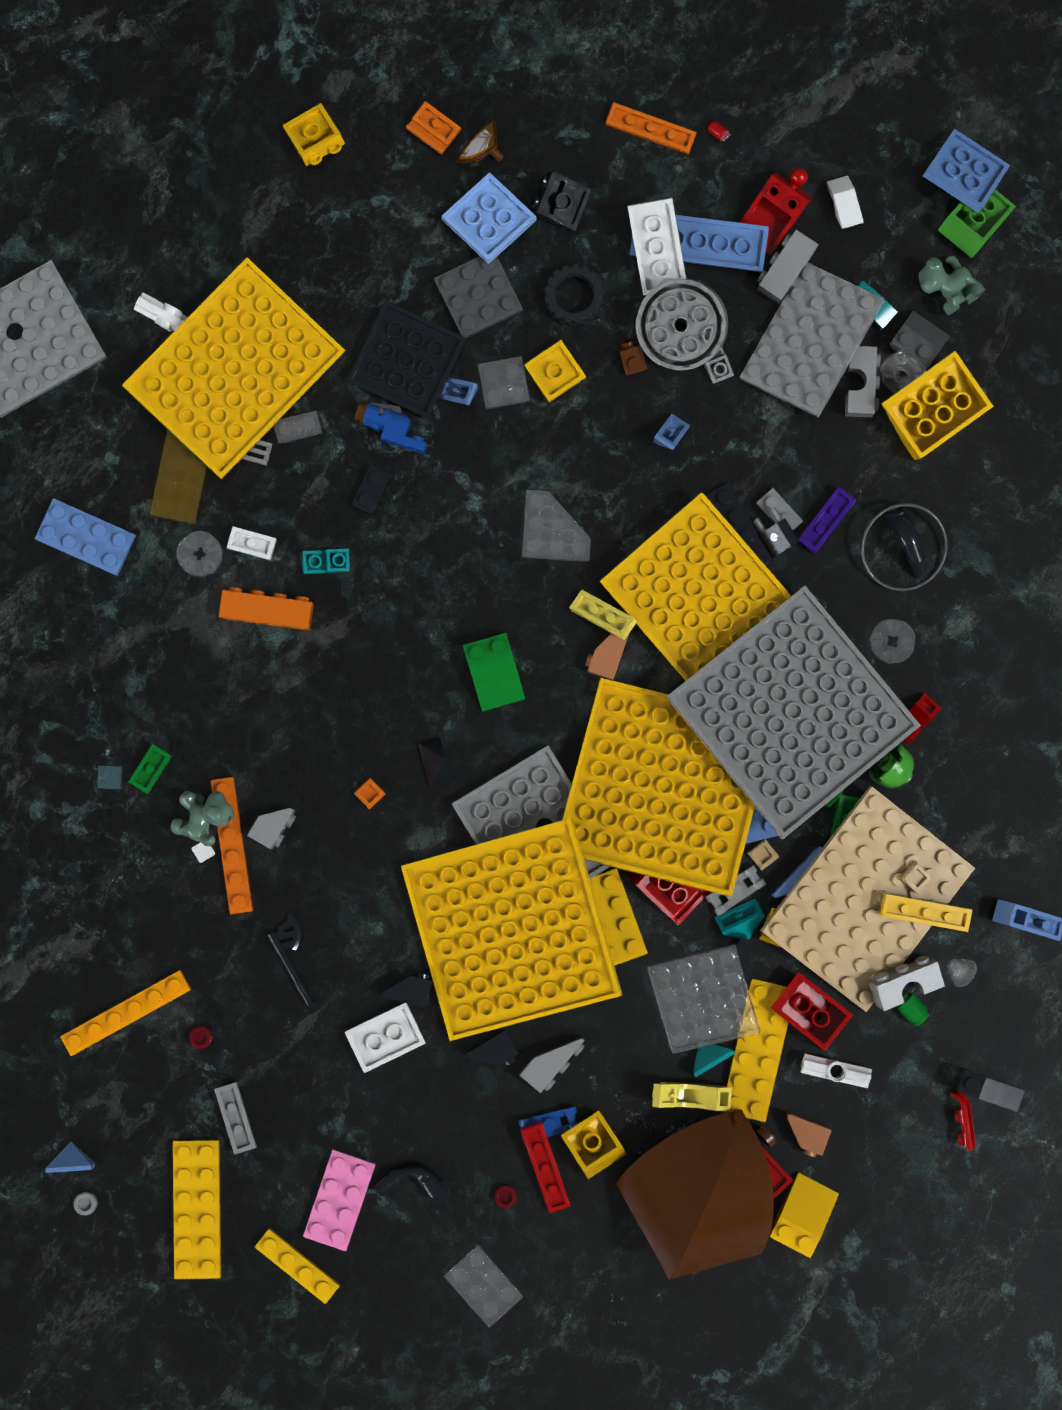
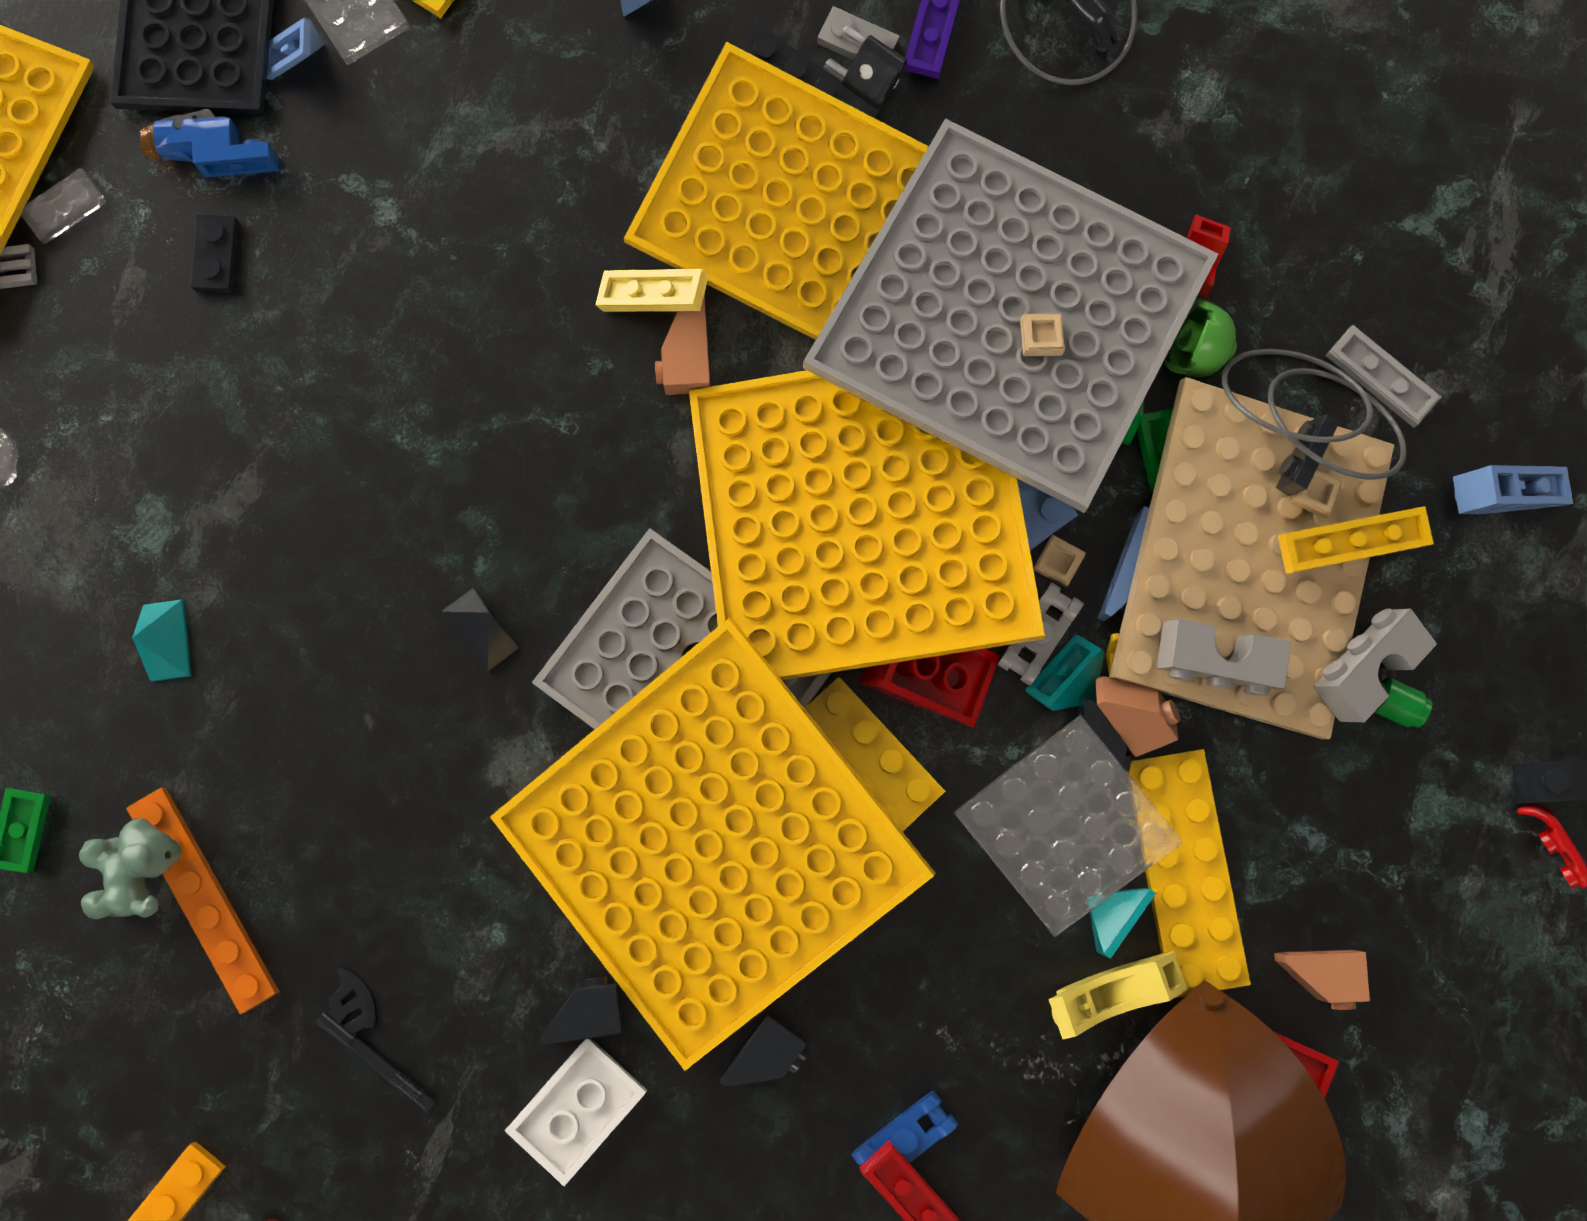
camera: 25 degrees left, 5 degrees down
(203, 852) = (160, 928): white sticker -> none
(251, 543) = (53, 408): white plate -> none
(263, 697) = (163, 640): none -> teal slope
(266, 609) = (113, 500): orange brick -> none
(270, 826) = (253, 841): light grey slope -> none
(325, 561) = (185, 391): teal slope -> none
(369, 793) = (396, 722): orange tile -> none
(494, 672) = (517, 449): green slope -> none
(546, 1065) = (860, 1041): light grey slope -> none
(552, 531) = (522, 203): clear plate -> none
(593, 1144) = (991, 1143): yellow slope -> none
(765, 1136) = (1262, 1007): reddish brown tile -> none
(766, 956) = (1138, 714): none -> nougat slope
(801, 733) = (1042, 334): none -> tan tile
(803, 1215) = (1381, 1112): yellow slope -> none
(806, 935) = (1190, 651): none -> light grey arch
(811, 1011) = (1249, 773): red slope -> none
(850, 1073) = (1347, 847): white piece -> none
(905, 642) = (1106, 177): clear plate -> none
(908, 842) = (1243, 410): none -> dark grey piece
(912, 860) = (1299, 468): none -> black plate
(918, 861) = (1304, 449): none -> dark grey piece
(961, 971) = (1448, 611): clear cone -> none
(987, 827) = (1383, 376): none -> light grey tile

